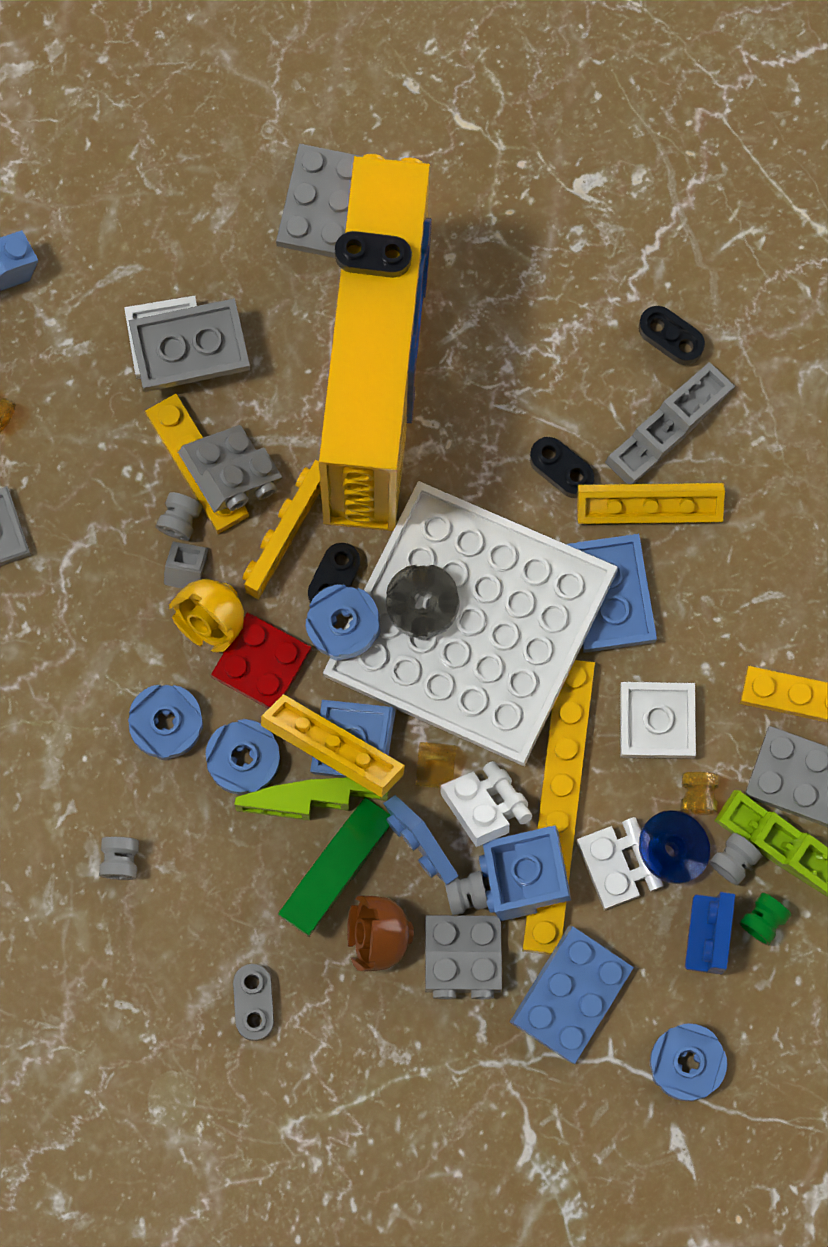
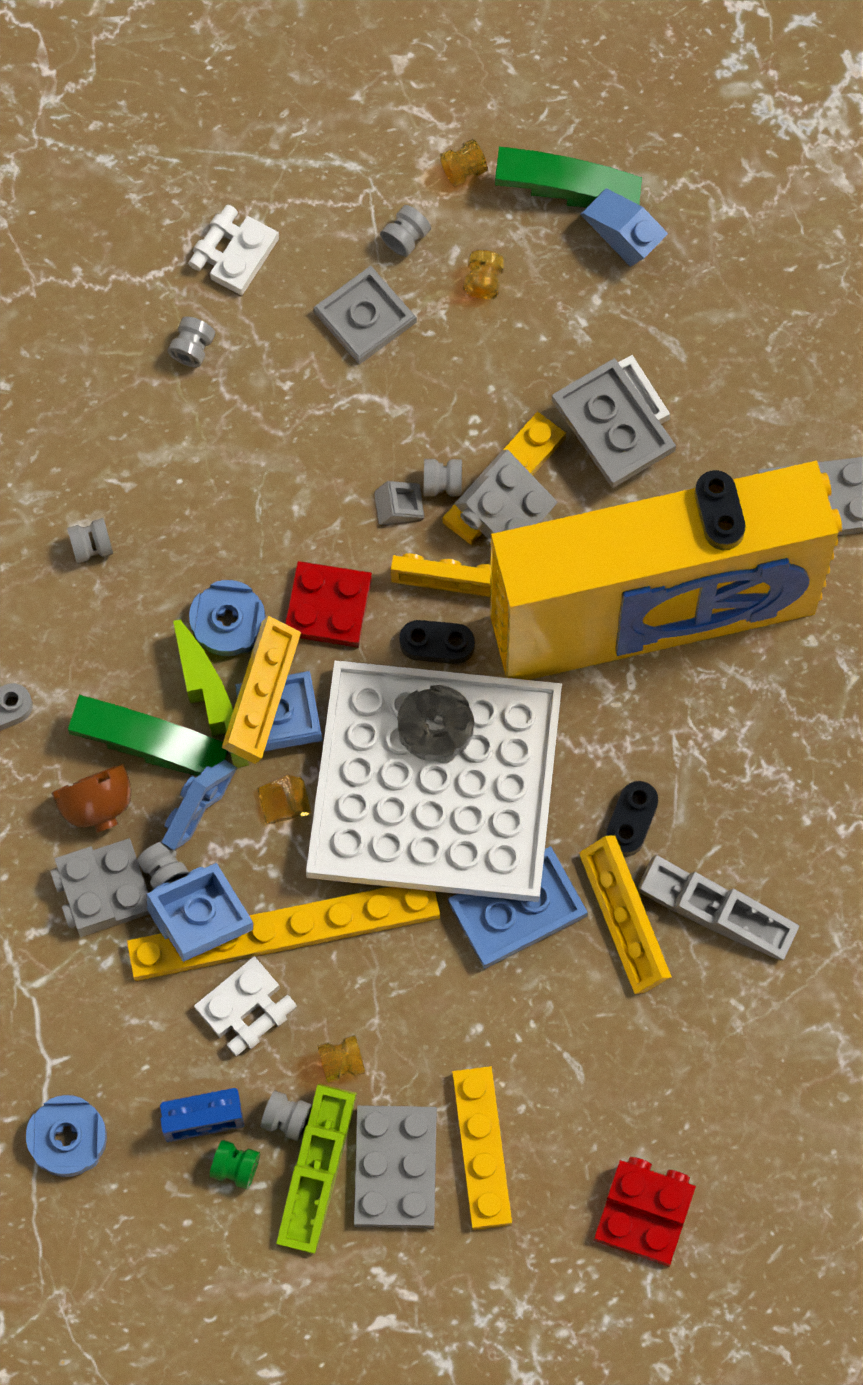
camera: 75 degrees right, 5 degrees down
(165, 700) = (231, 517): medium blue plate -> none
(208, 613) = (357, 536): yellow cylinder -> none
(341, 643) = (389, 638): medium blue plate -> none
(477, 811) = (248, 846): white plate -> none
(571, 994) = (96, 1001): medium blue plate -> none
(657, 720) = (402, 994): white plate -> none
(674, 333) = (811, 879): black plate -> none
(687, 840) = (296, 1056): clear blue dish -> none

